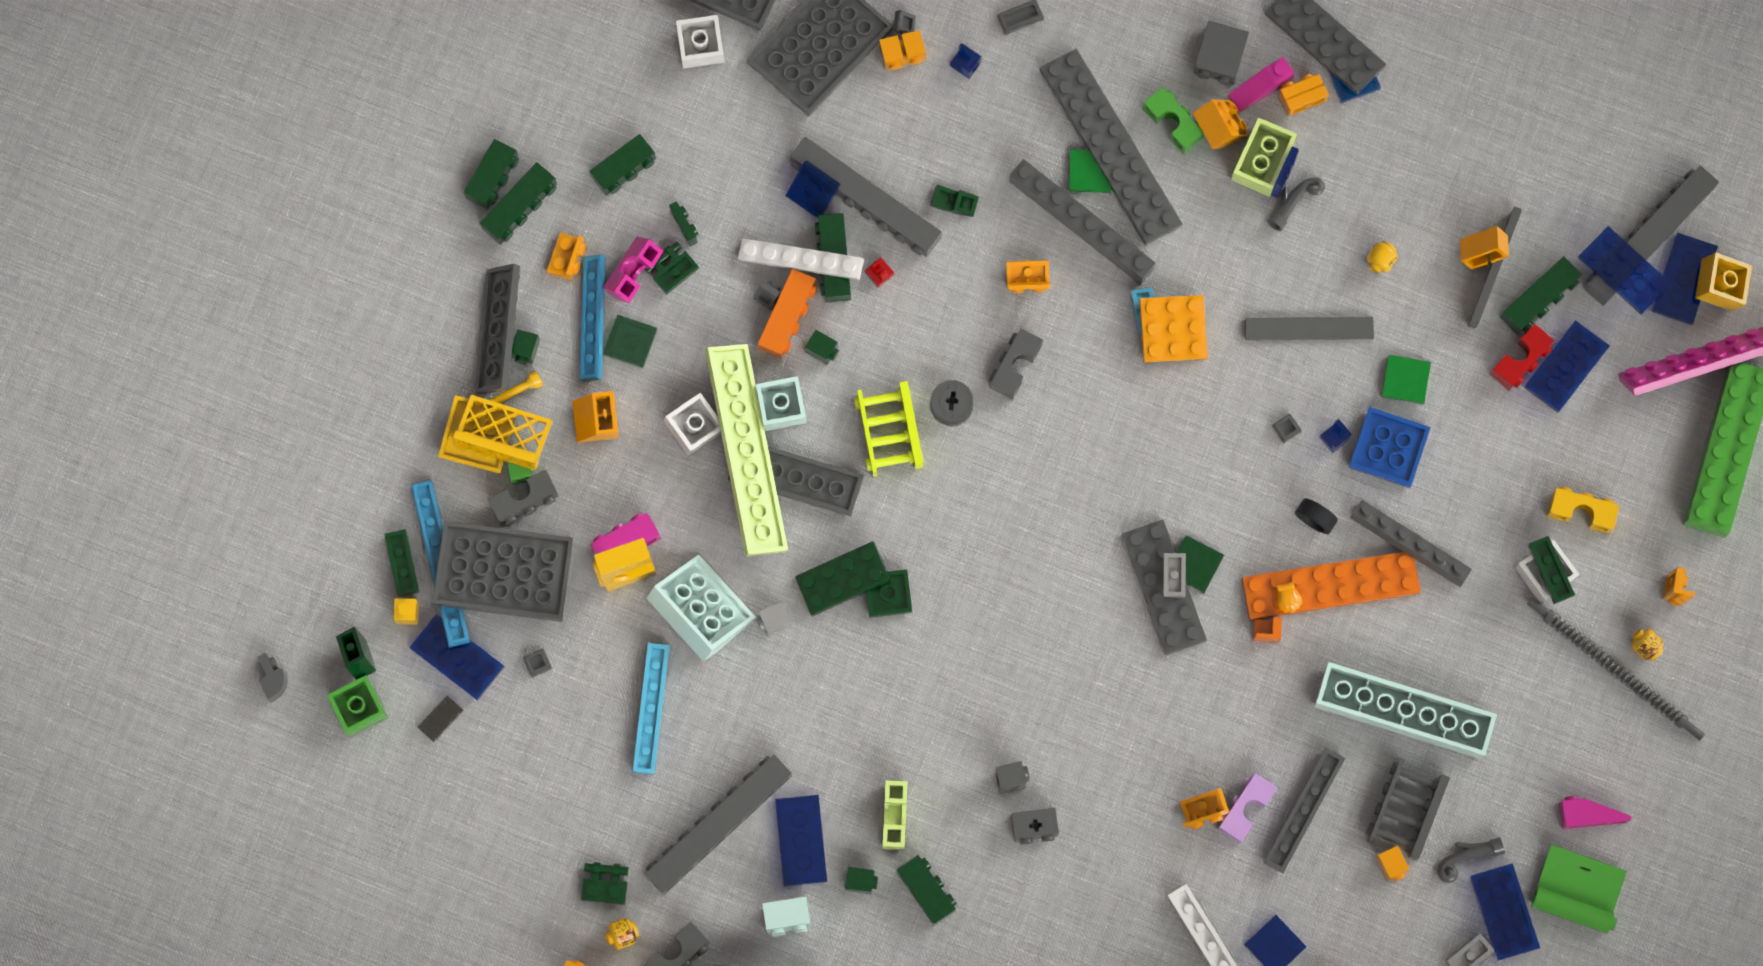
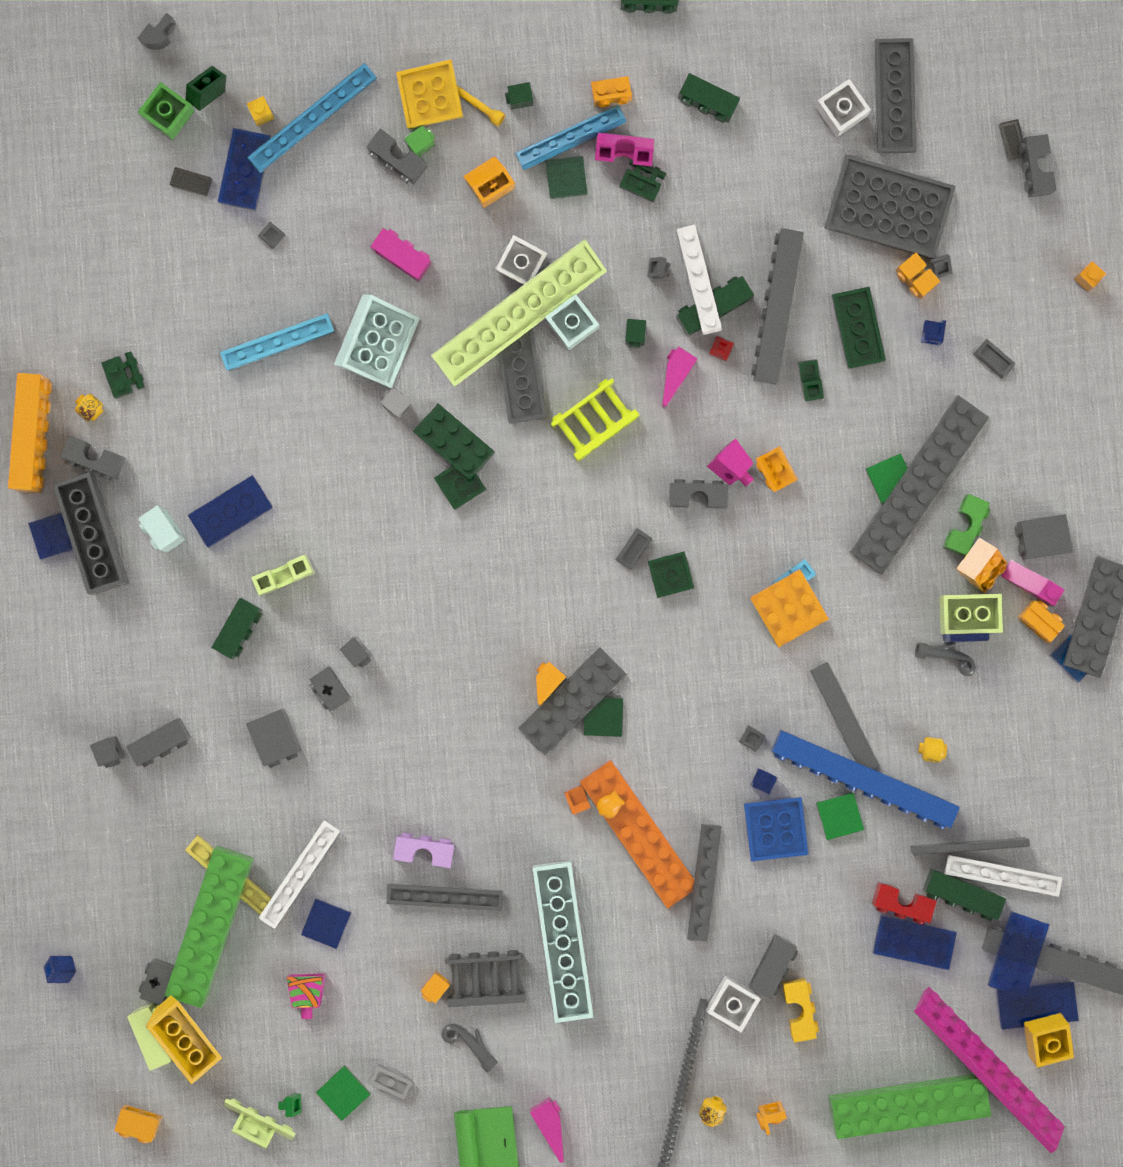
camera: 60 degrees right, 10 degrees up
(401, 563) = (298, 88): dark green plate -> none
(496, 449) = (422, 109): yellow fence -> none
(497, 329) = (522, 66): dark grey plate -> none
(502, 571) = (328, 170): dark grey plate -> none
(519, 203) = (635, 31): dark green brick -> none
(623, 565) = (374, 261): yellow arch -> none
(680, 215) = (680, 177): dark green plate -> none
(718, 824) = (210, 440): dark grey brick -> none
(787, 313) = (649, 291): orange brick -> none
(812, 189) = (762, 261): clear blue tile -> none
(861, 880) = (220, 573): dark green brick -> none
(880, 325) = (677, 369): none -> dark pink slope
(925, 130) = (858, 328): none -> dark green plate
(941, 398) = (642, 448): dark grey piece -> none
(1002, 314) = (732, 464): none -> dark pink torso
(1039, 453) = (634, 549): none -> dark grey tile
(1058, 906) = (274, 738): none -> dark grey brick
(1082, 222) = (843, 491): dark grey brick -> none
(1083, 428) = (670, 574): none -> dark green plate
(1132, 601) = (547, 681): none -> light orange slope
(1174, 575) = (583, 705): light grey plate -> none
(1203, 808) = (405, 817): light orange bracket -> none
(1316, 516) = (688, 796): black tyre -> none
(1379, 337) = (864, 778): none -> blue brick
(1477, 246) = (979, 825): light orange piece -> none
(1504, 912) = (439, 1093): clear blue plate -> none
(1526, 513) = (773, 966): none -> dark grey brick
(1539, 250) = (1003, 875): none -> white plate
(1551, 570) = (732, 1008): dark green plate -> none

